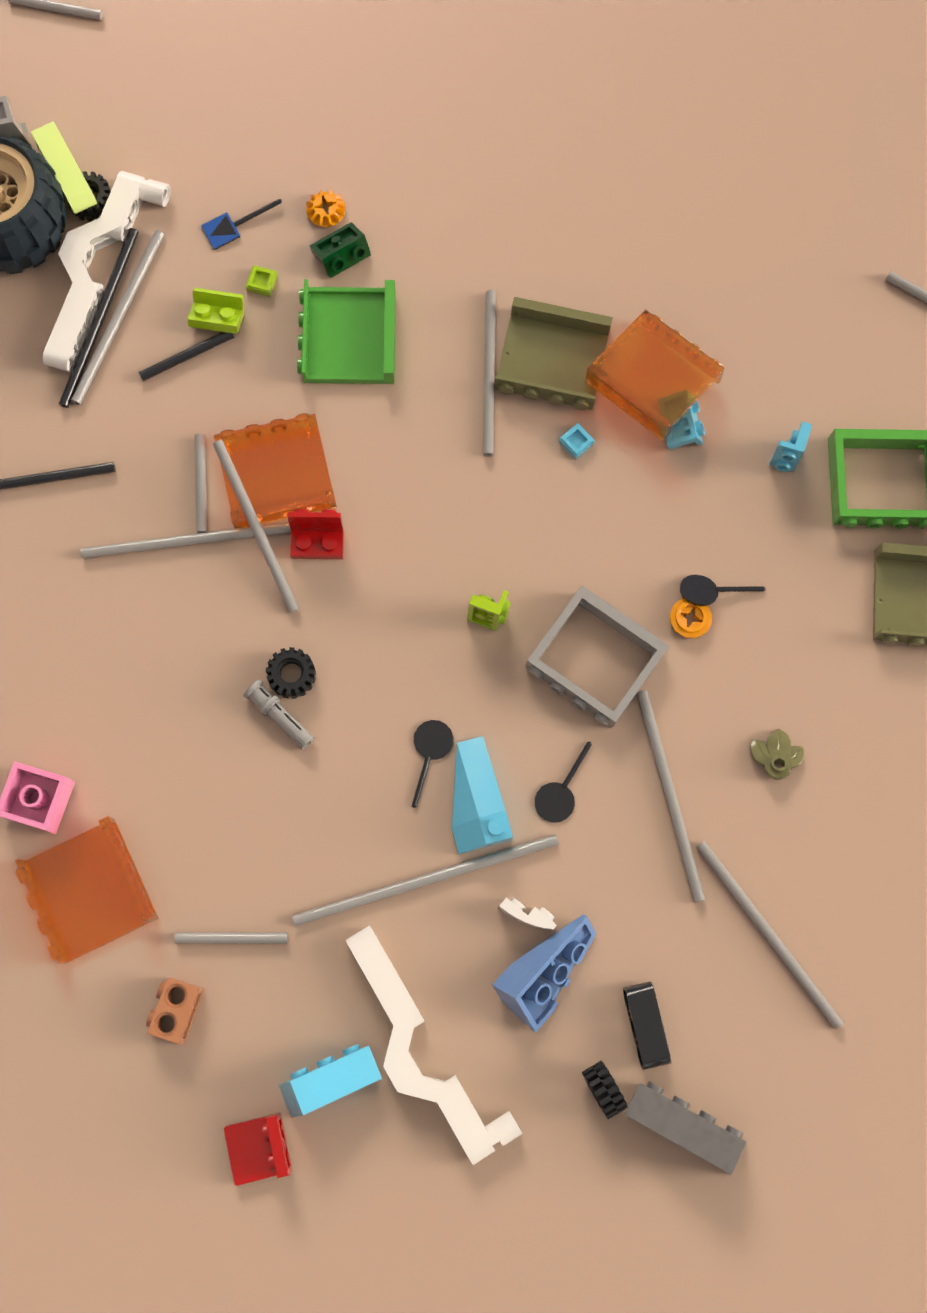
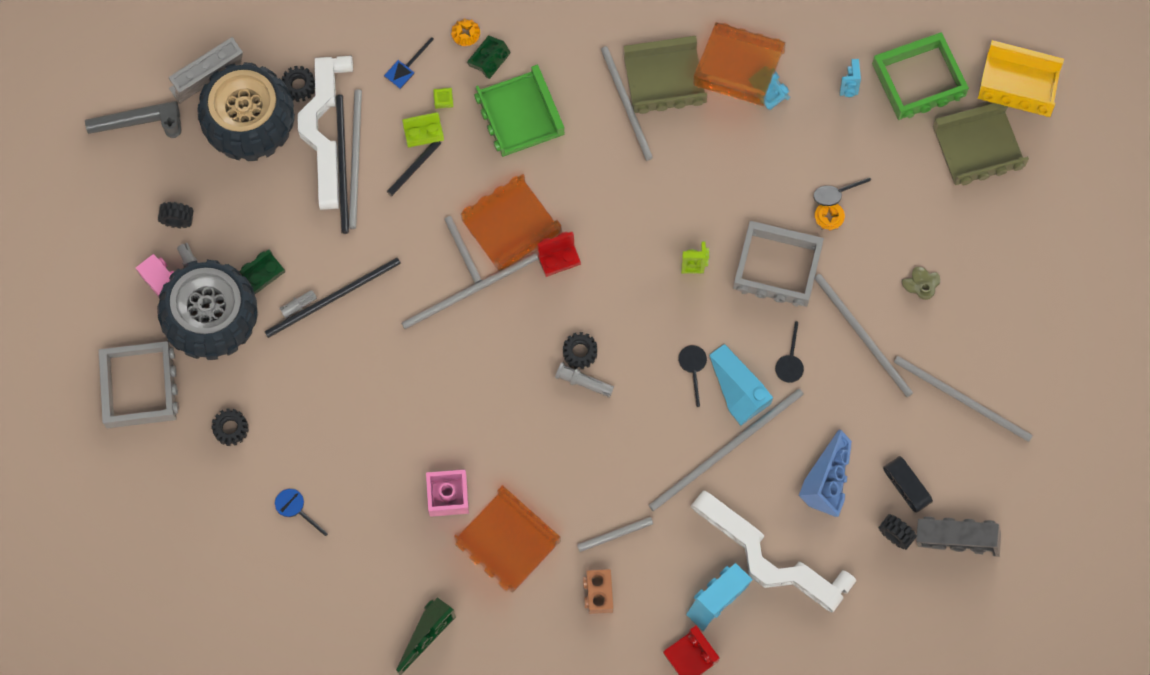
camera: 15 degrees left, 5 degrees down
(67, 171) = (264, 57): yellowish green beam -> none
(255, 526) = (517, 263): light grey piece -> none
(536, 918) = (810, 445): white slope -> none
(576, 441) = (705, 127): medium azure tile -> none

